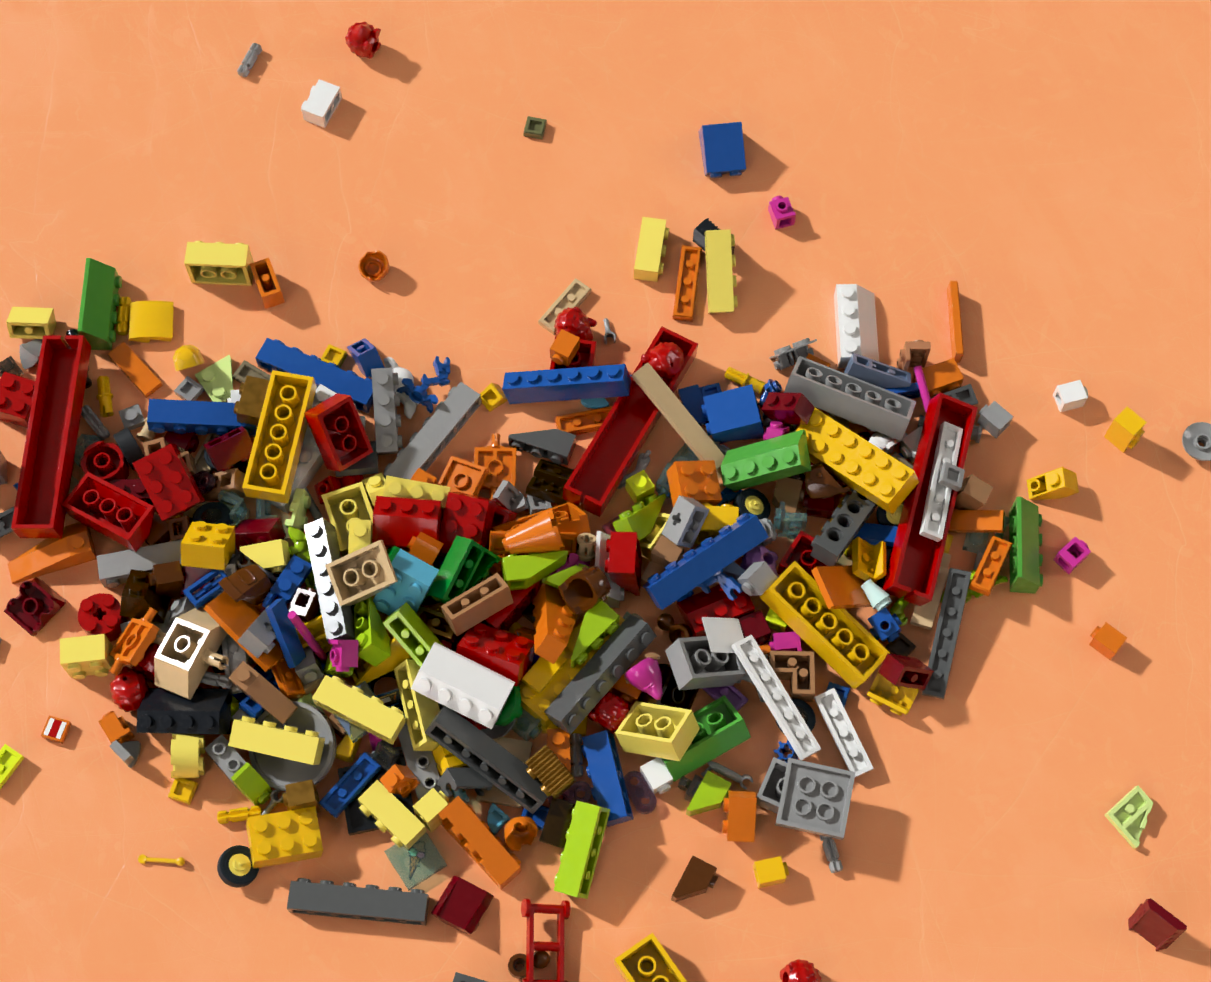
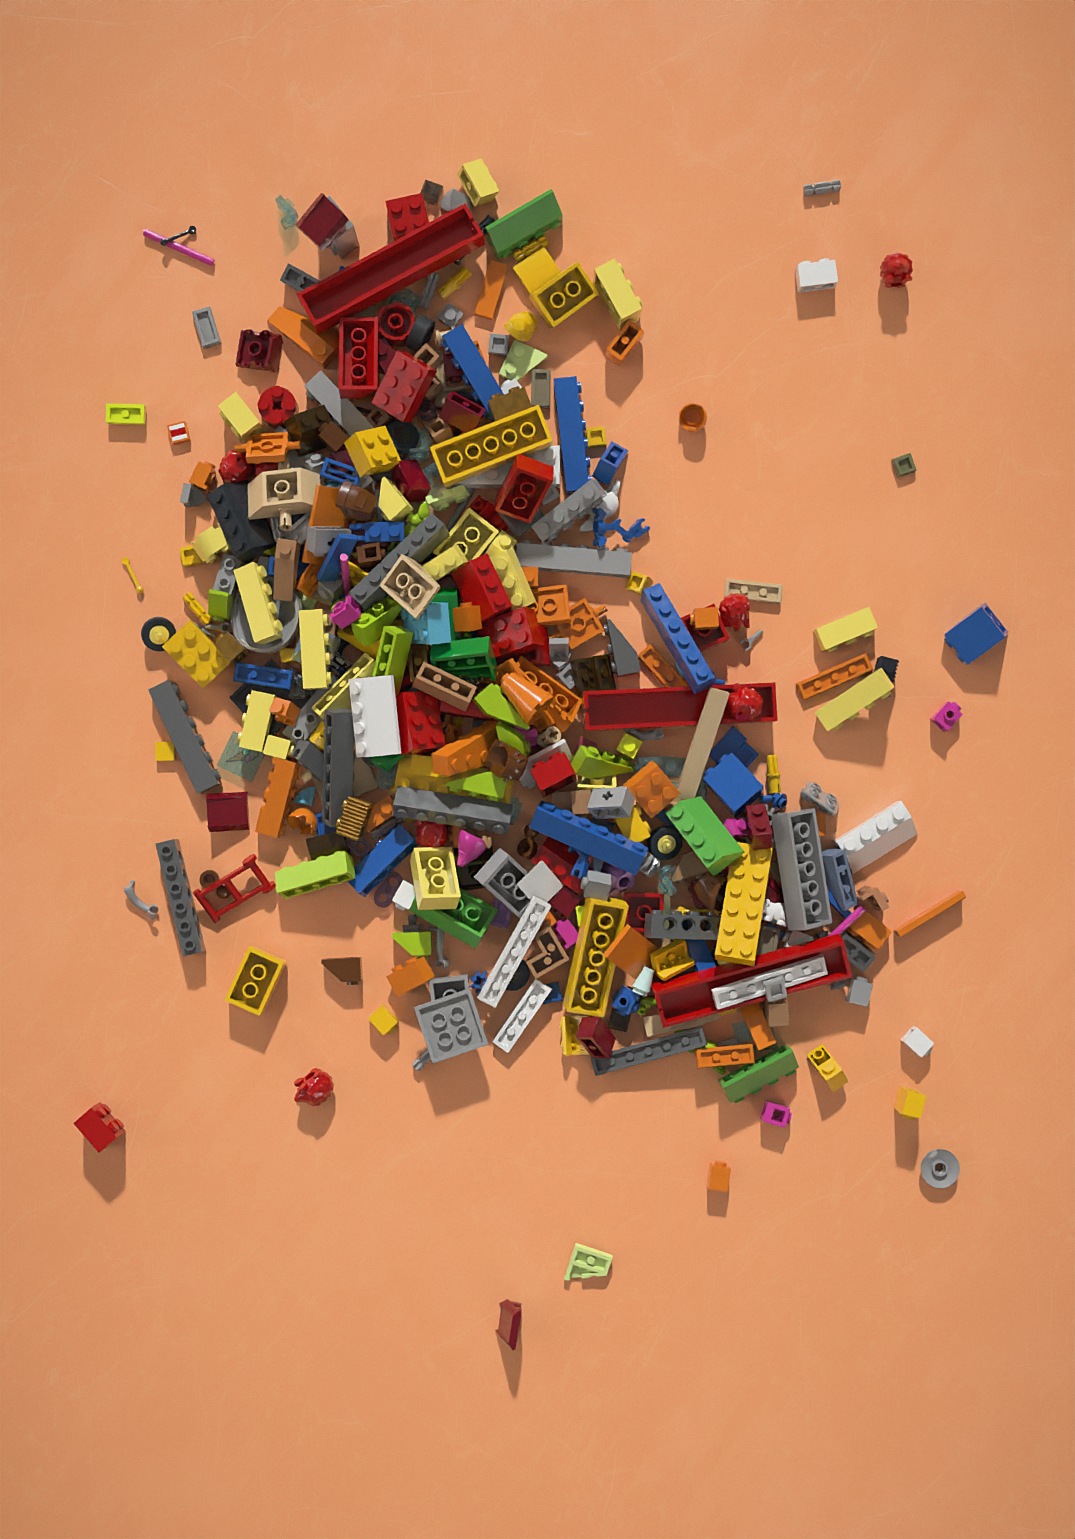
camera: 55 degrees right, 20 degrees up
(186, 307) = (563, 295): none -> yellow brick
(359, 934) = (165, 751): none -> yellow tile

